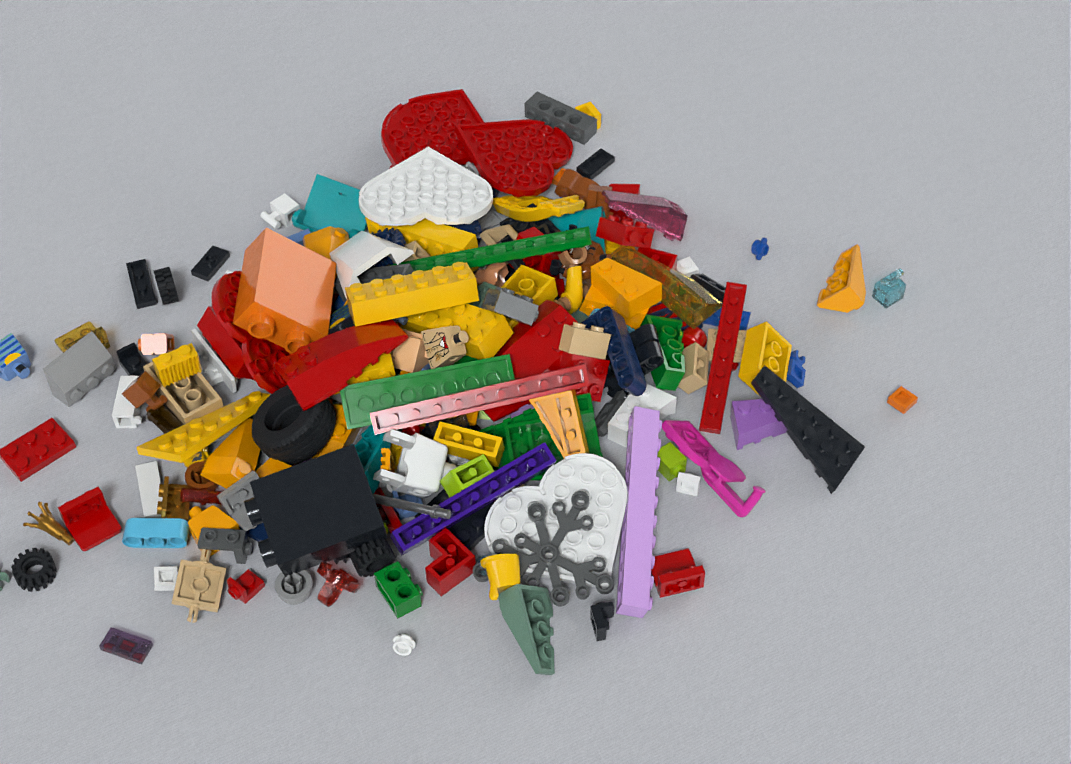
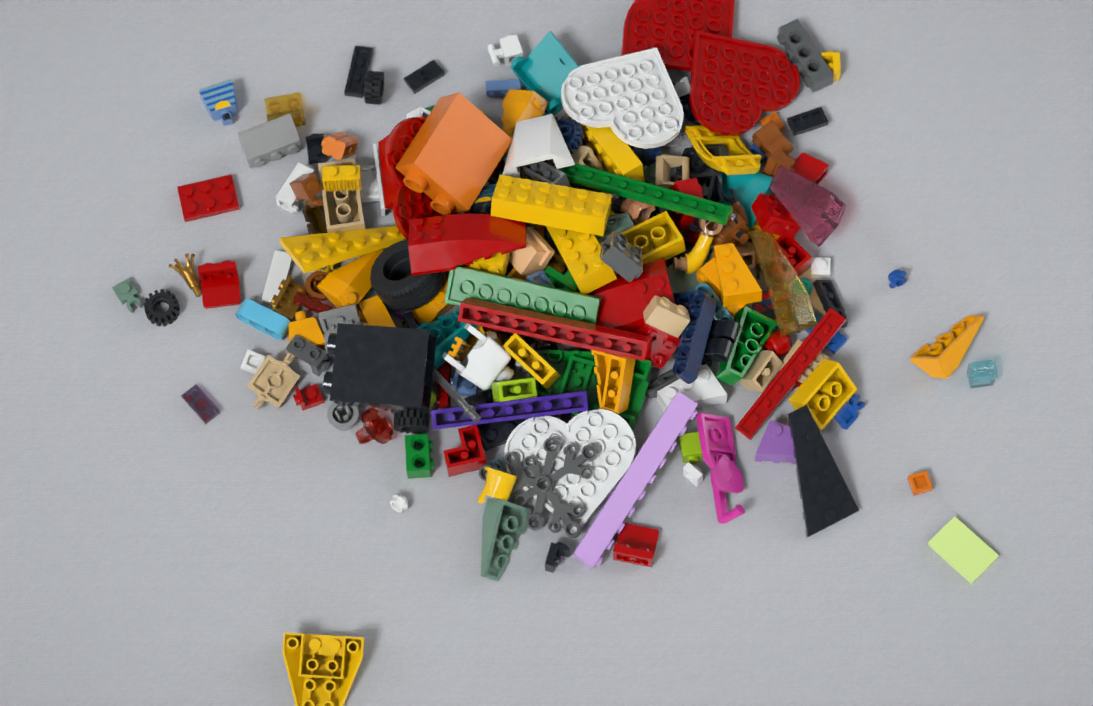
camera: 30 degrees right, 15 degrees up
(444, 345) = (553, 264): tan torso -> none
(982, 439) = (963, 550): none -> yellowish green tile

